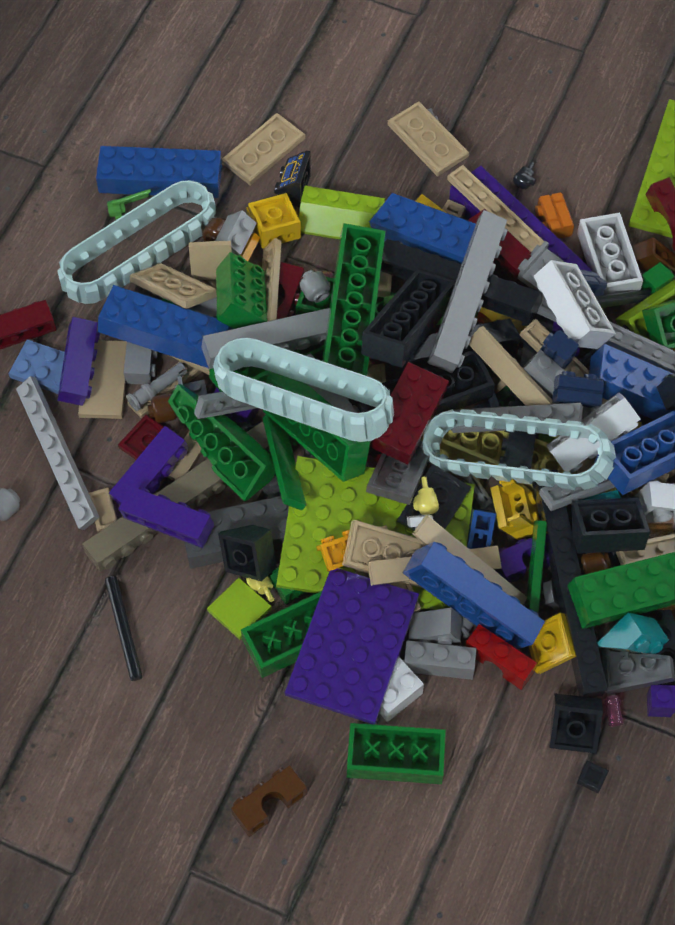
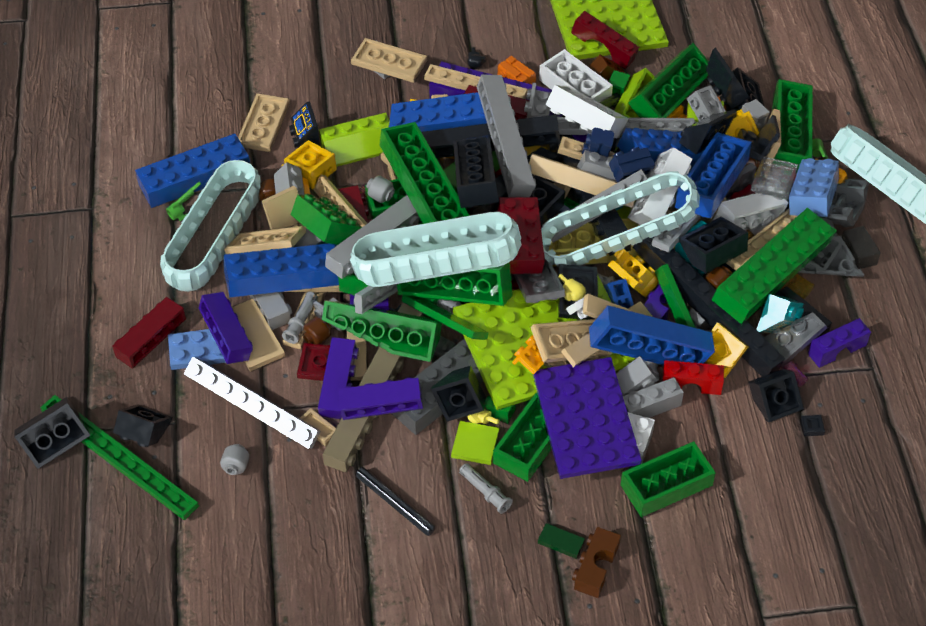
camera: 30 degrees left, 10 degrees down
(217, 671) = (491, 493): none -> light grey pin
(252, 758) = (561, 541): none -> dark green tile

